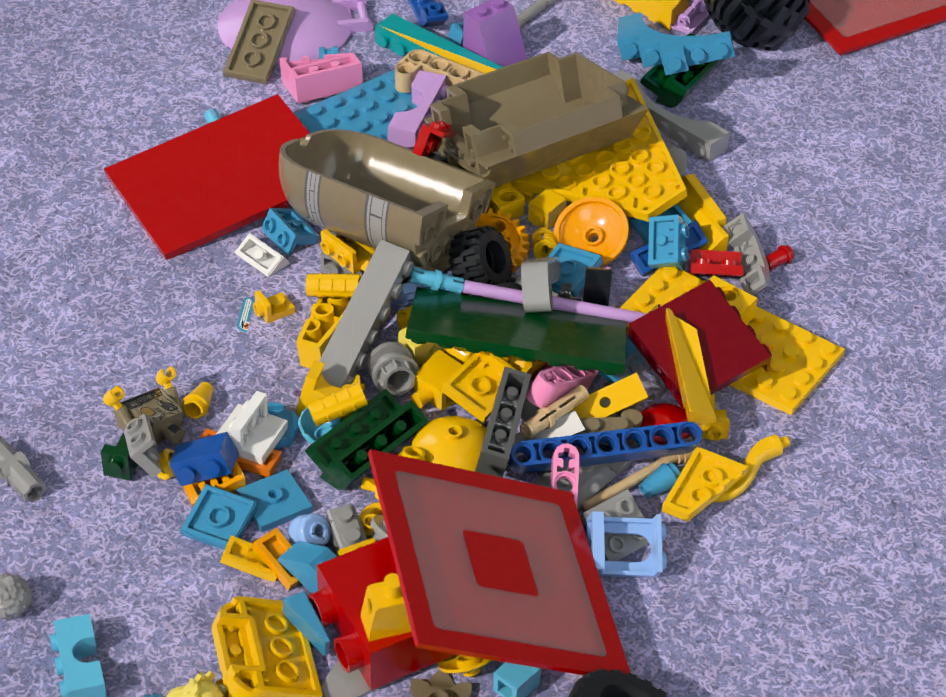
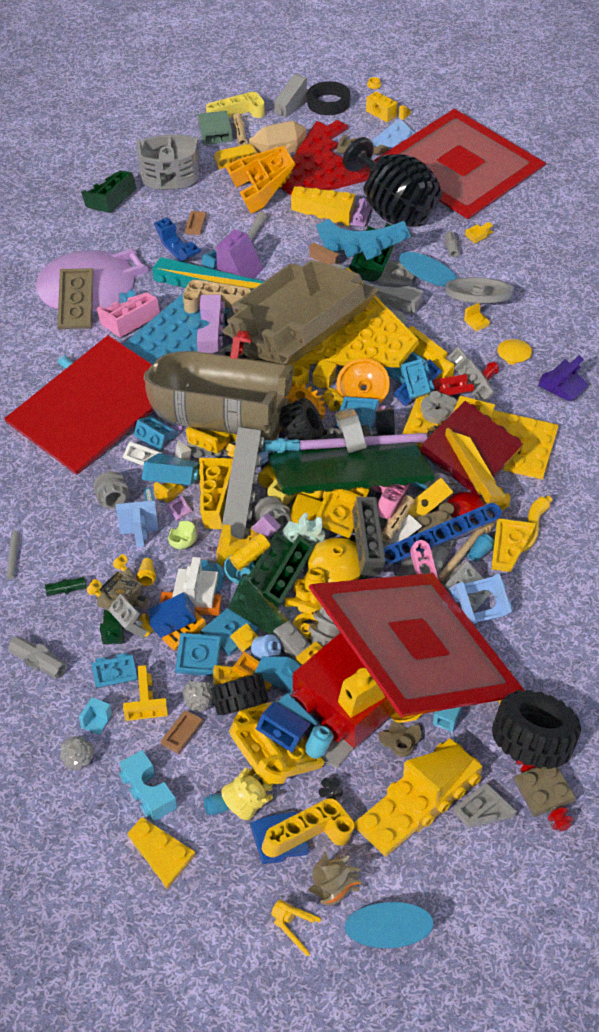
camera: 15 degrees left, 5 degrees up
(40, 337) = (12, 555): none -> light grey bar
(52, 558) = (95, 716): none -> medium azure panel
(84, 391) = (65, 586): none -> dark green pin
(101, 510) = (114, 670): none -> dark azure bracket
(125, 562) = (147, 706): none -> yellow bracket
(155, 608) = (181, 732): none -> medium nougat tile
(195, 567) = (198, 695): none -> light grey piece
(197, 287) = (111, 489): none -> light grey piece
(213, 331) = (137, 519): none -> light blue bracket
(242, 576) = (239, 694): none -> black tyre
(265, 368) = (183, 536): none -> yellowish green hair
(277, 331) = (178, 508): none -> lavender slope
(279, 278) = (170, 470): none -> dark azure slope
(281, 632) = (282, 726): none -> blue brick
(285, 511) = (244, 637): none -> yellow plate
(312, 264) = (182, 451): none -> white slope
(315, 476) = (254, 607): none -> clear green wing
(321, 665) = (318, 741): none -> medium azure brick
(331, 285) = (211, 466): yellow axle -> none
(375, 377) = (266, 525): none -> lavender slope
(425, 396) = (308, 530): none -> light aqua plate
(614, 57) = (323, 254): none -> medium nougat tile
(676, 276) = (434, 400): none -> light grey plate
(707, 105) = (395, 275): none -> light grey tile
(751, 107) = (427, 268): none -> dark azure shield
(790, 185) = (475, 318): none -> yellow bracket
(801, 83) = (451, 244): none -> light grey axle
(808, 148) = (479, 290): none -> light grey dish
(827, 239) = (514, 351): none -> yellow dish
(845, 76) = (478, 232): none -> yellow plate
(879, 292) = (564, 380): none -> dark purple piece

